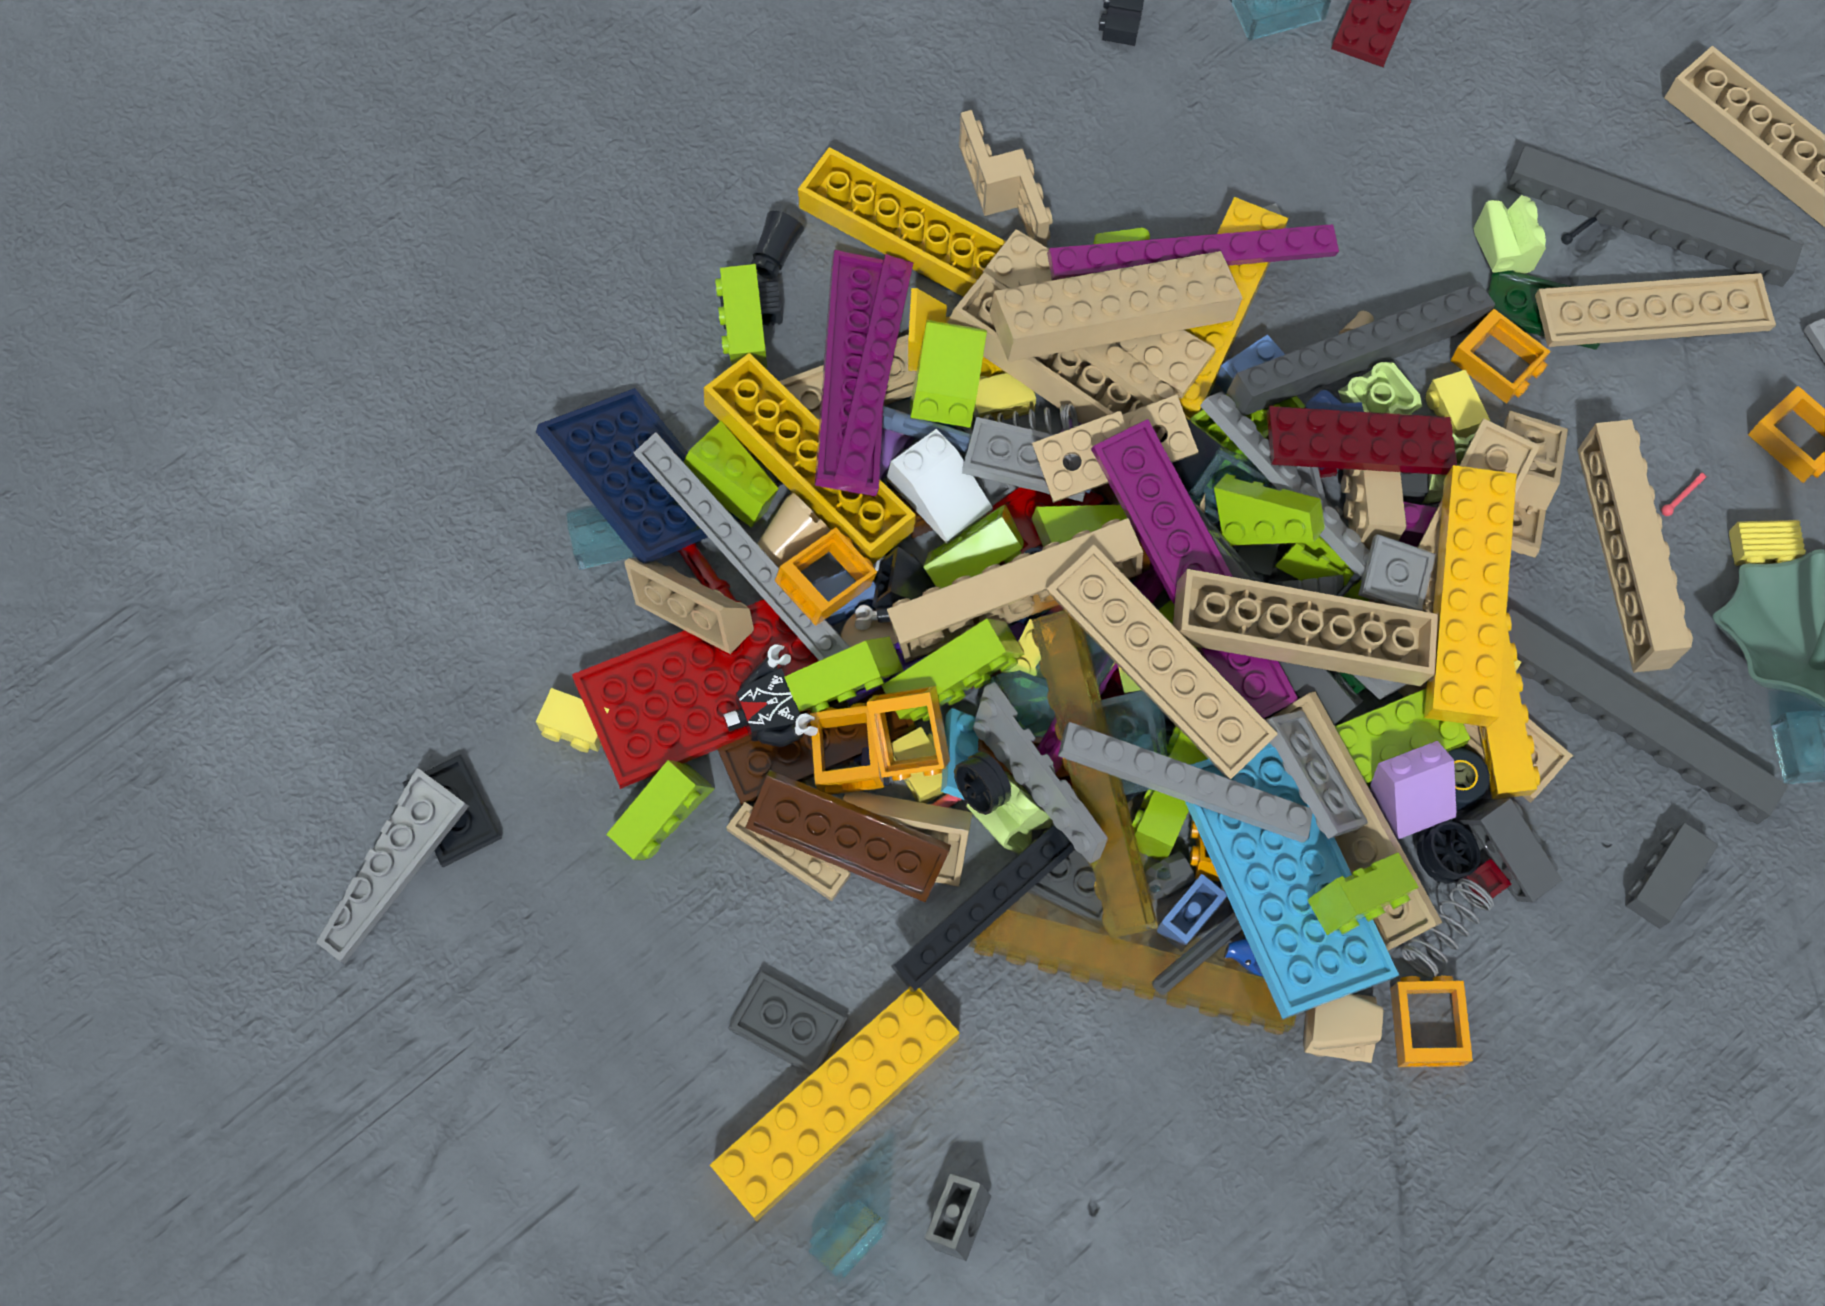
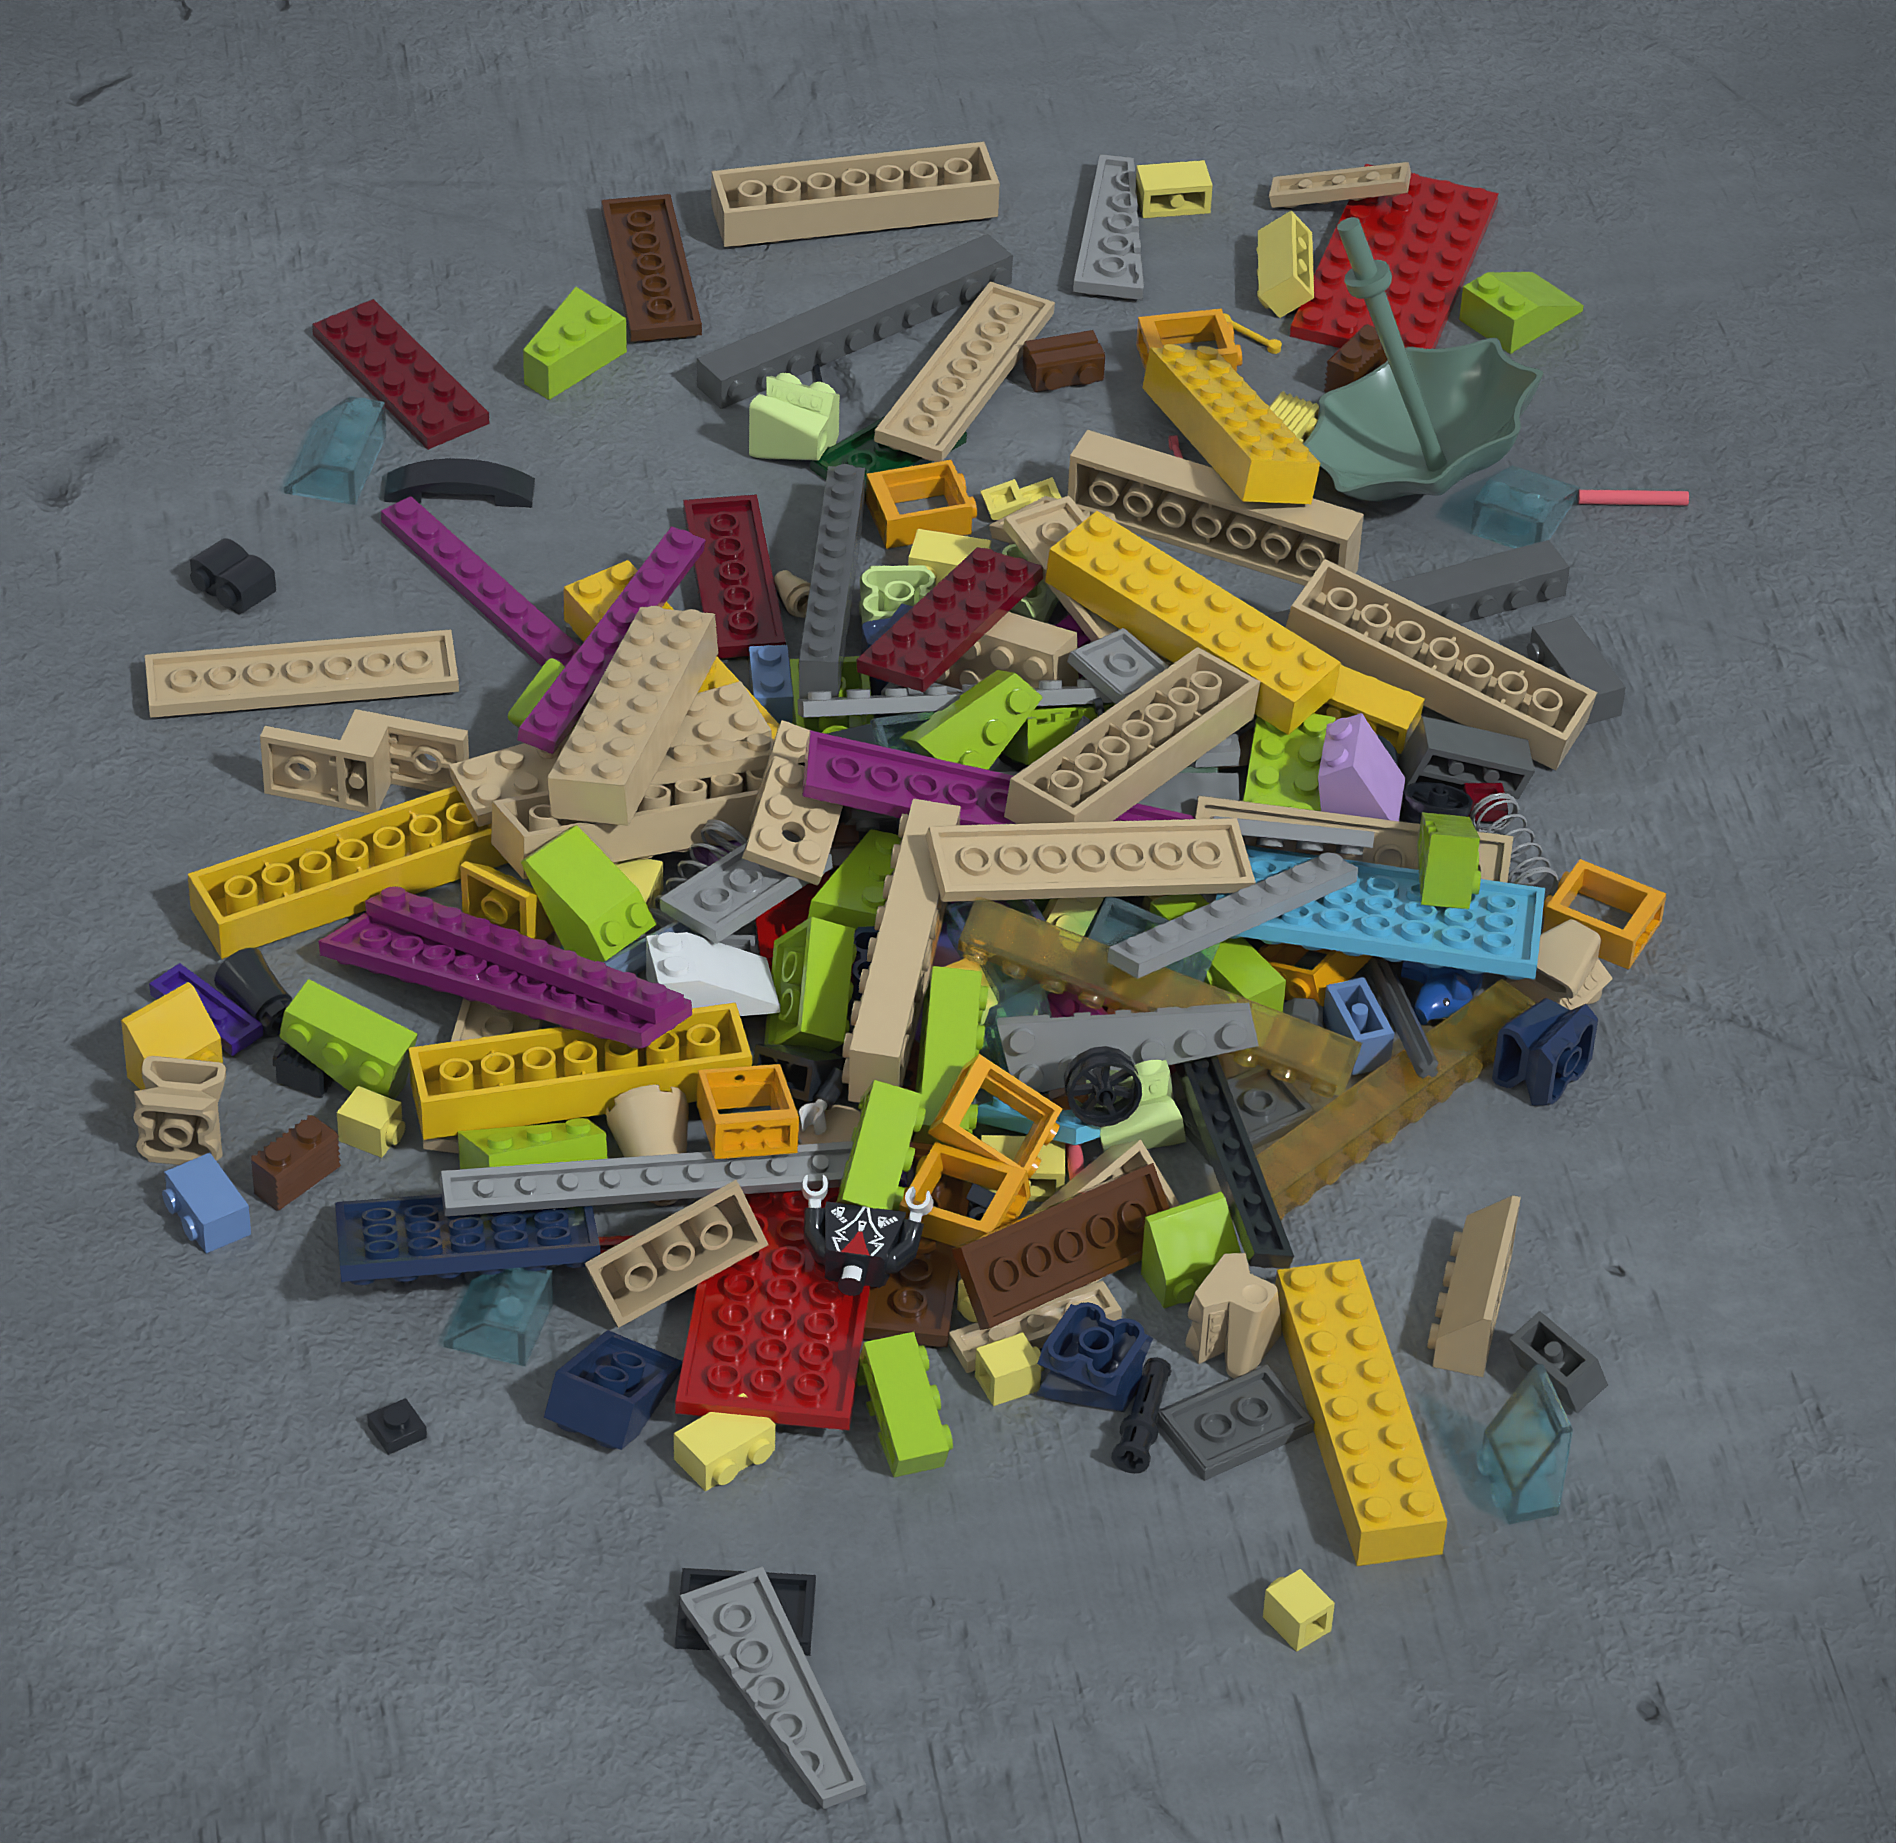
camera: 60 degrees left, 25 degrees down
(483, 528) = (397, 1426): none -> black plate
(579, 629) = (611, 1389): none -> dark blue slope
(588, 321) = (206, 1203): none -> medium blue brick
(638, 1152) = (1298, 1609): none -> light yellow brick
(639, 262) = (179, 1109): none -> tan piece
(648, 347) = (295, 1162): none -> reddish brown brick
(694, 225) = (170, 1028): none -> yellow slope
(709, 363) = (370, 1122): none -> light yellow brick
(738, 856) = (1008, 1369): none -> light yellow brick
(739, 965) = (1140, 1427): none -> black pin
(747, 224) = (233, 1023): none -> dark purple plate
(767, 906) = (1094, 1359): none -> dark blue piece
(861, 976) = (1234, 1316): none -> tan piece
(900, 915) = (1185, 1247): none -> lime slope
(994, 1123) = (1475, 1288): none -> tan slope
(1069, 103) = (301, 673): none -> tan plate
(1227, 148) = (478, 582): none -> magenta plate
(1255, 1054) = (1545, 1049): none -> dark blue piece
(1312, 85) = (461, 476): none -> black slope
(1344, 286) = (735, 573): none -> dark red plate
(1485, 67) = (573, 344): none -> lime wedge
(1556, 409) = (1008, 498): none -> light yellow slope
(1586, 781) = (1440, 661): none -> tan brick
(1603, 68) = (651, 268): none -> reddish brown plate
(1714, 509) = (1230, 425): none -> yellow brick
(1720, 364) = (1063, 361): none -> reddish brown brick

